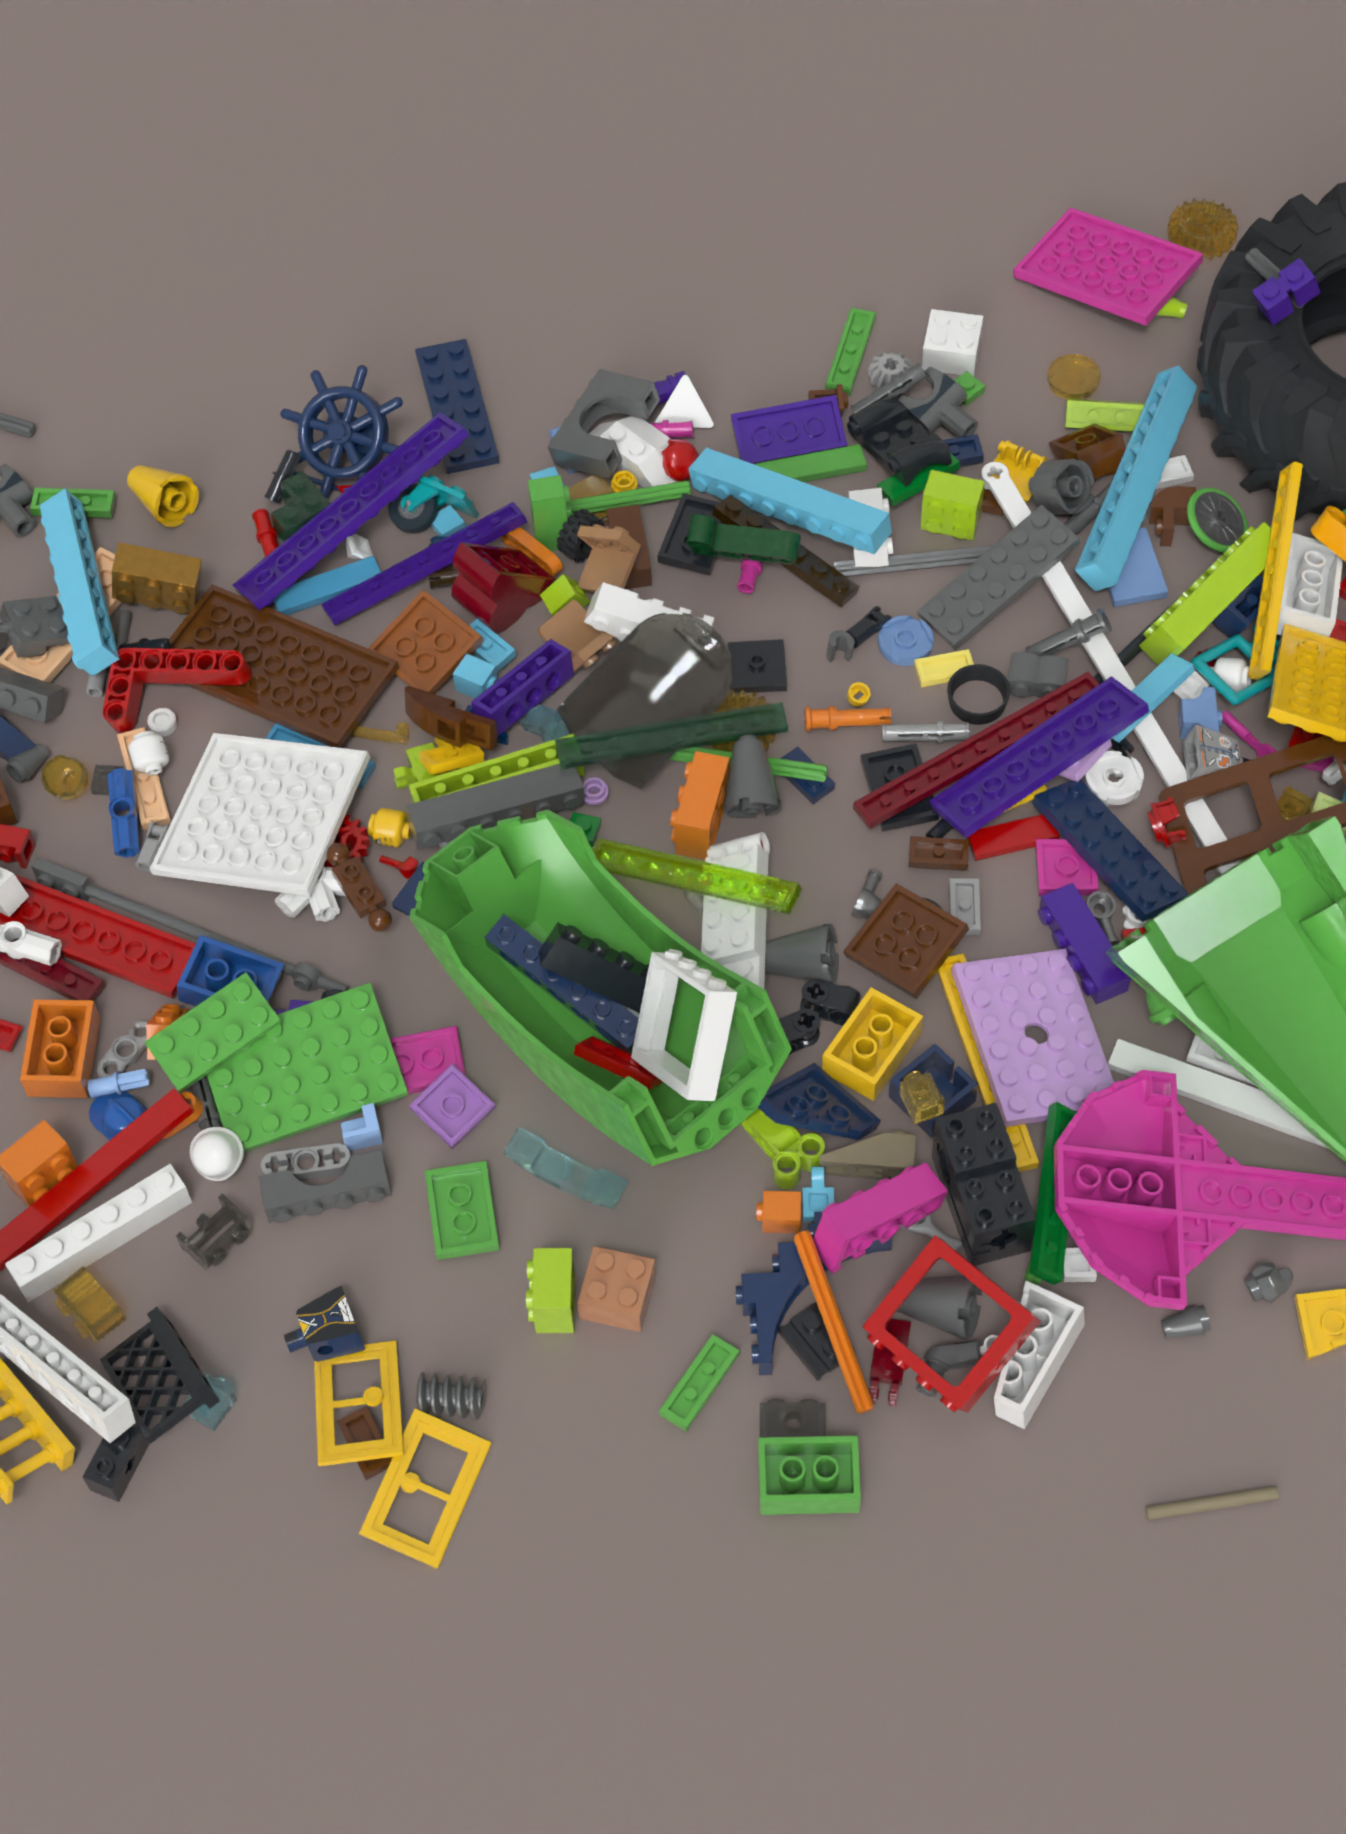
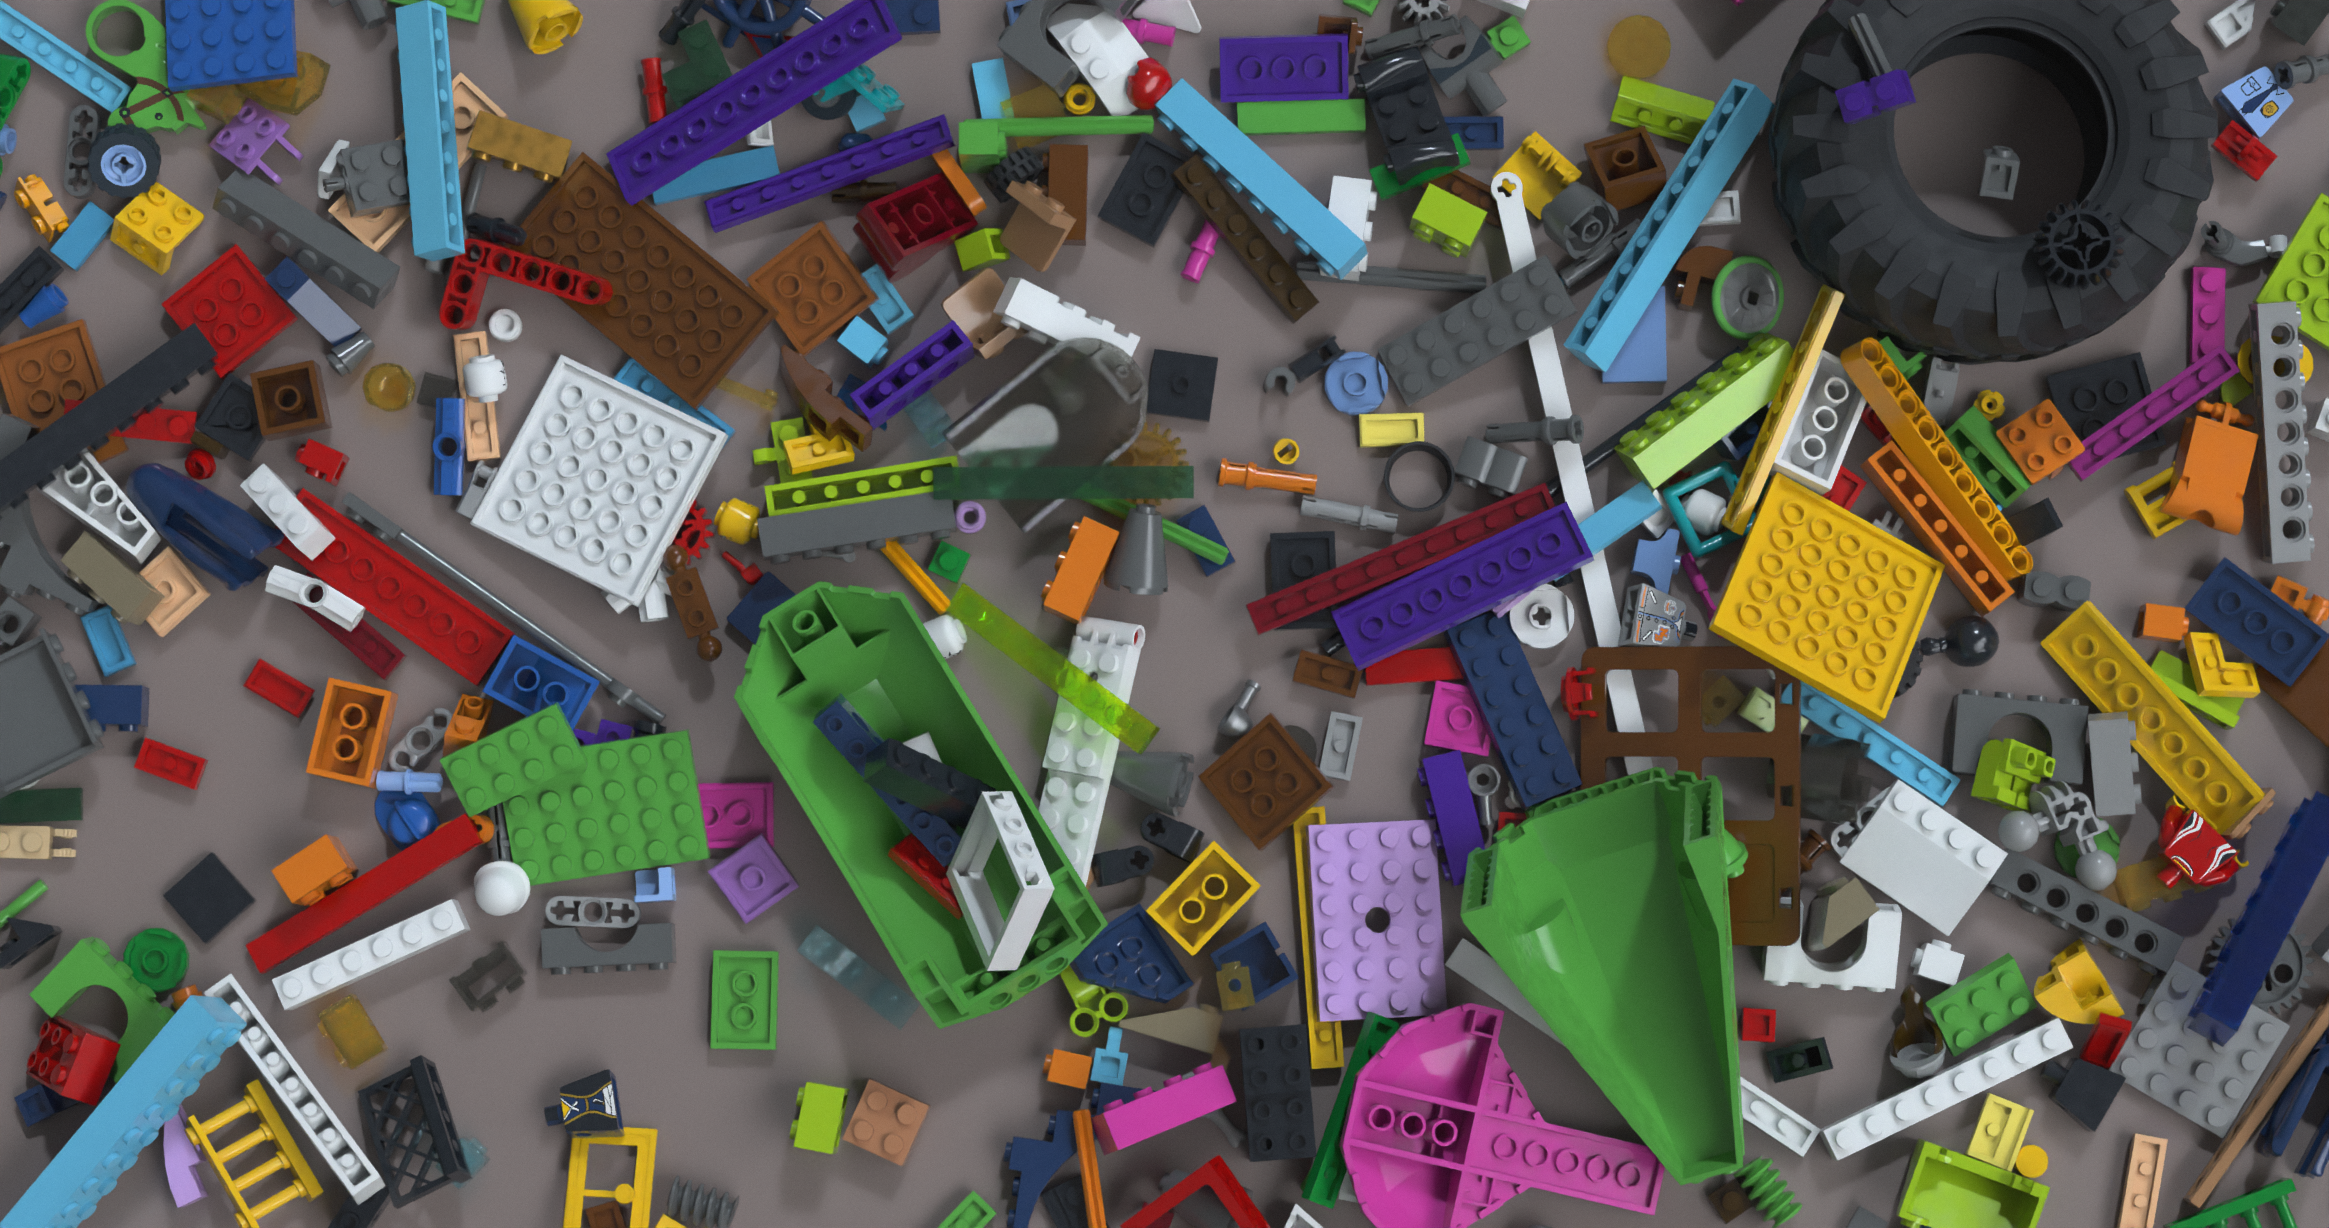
camera: 10 degrees right, 25 degrees up
(741, 542) = (1195, 231): dark green beam -> none

